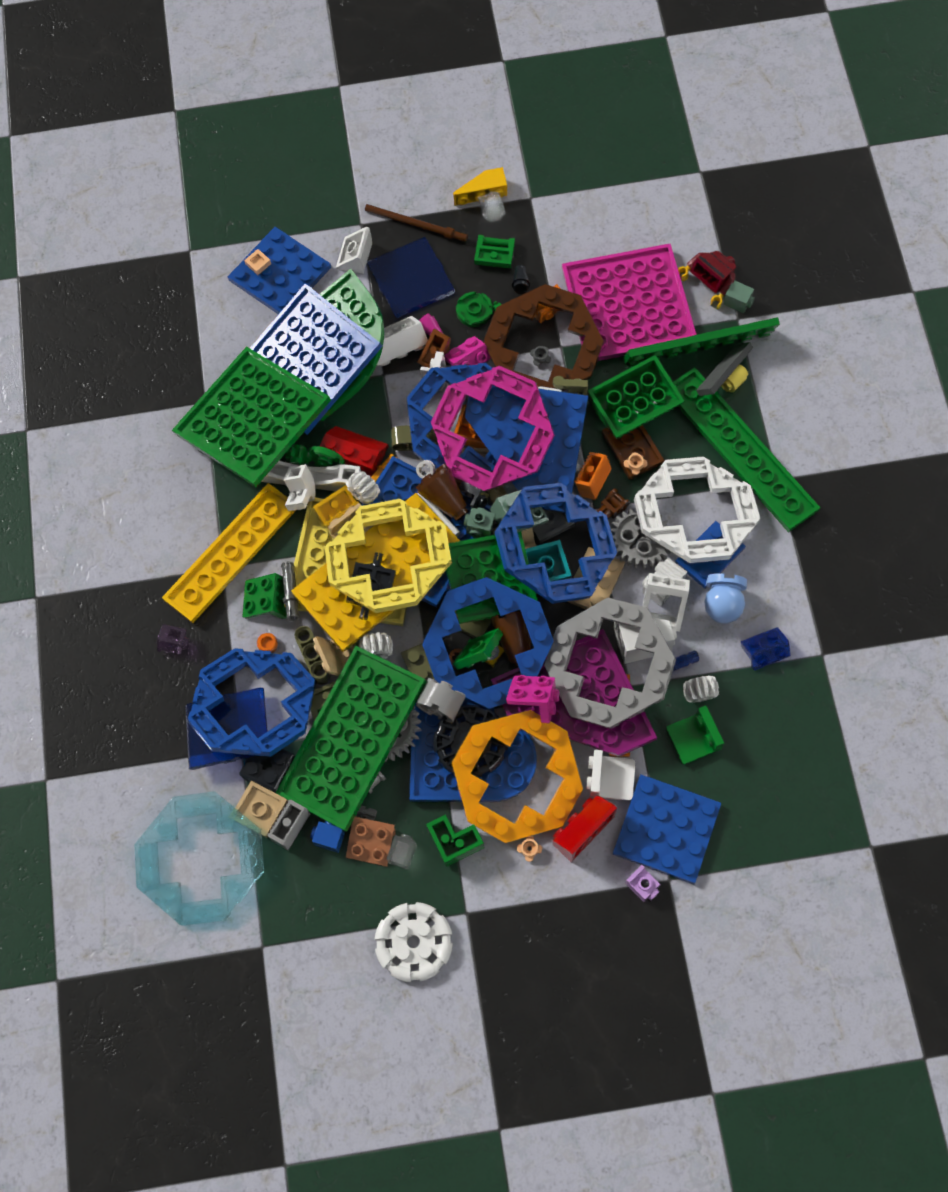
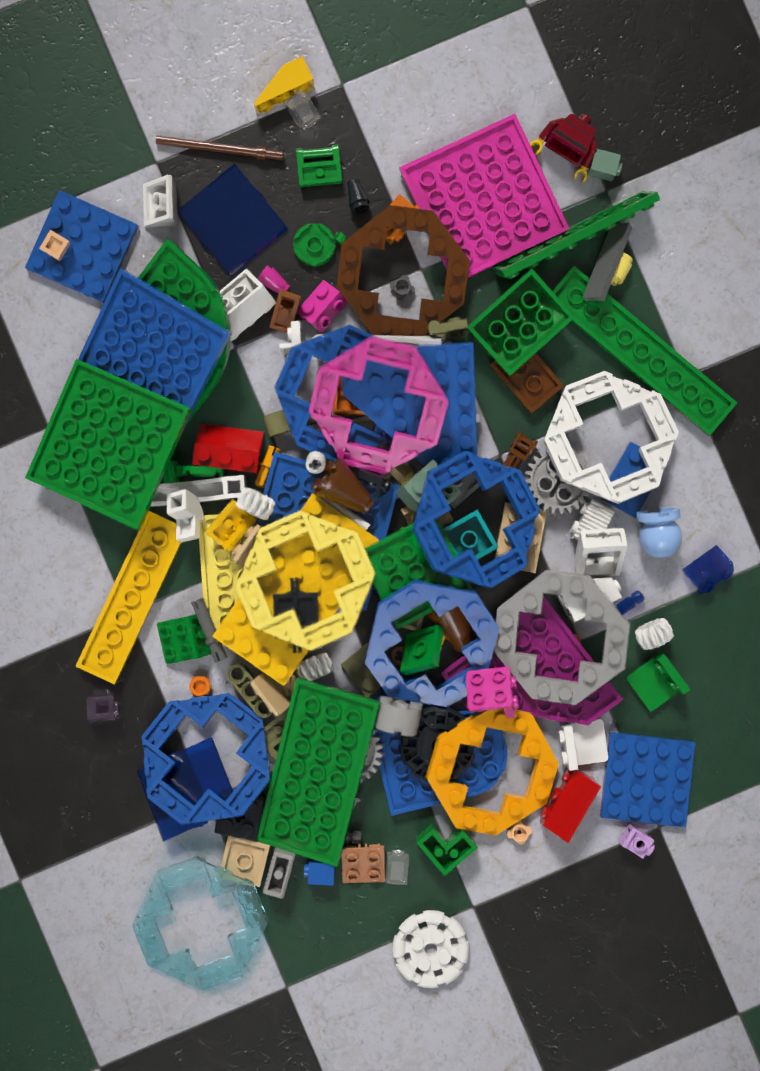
camera: 20 degrees left, 20 degrees up
(479, 522) = (397, 509): sand green brick -> none
(593, 475) = (493, 422): orange brick -> none
(635, 457) = (541, 397): light nougat plate -> none

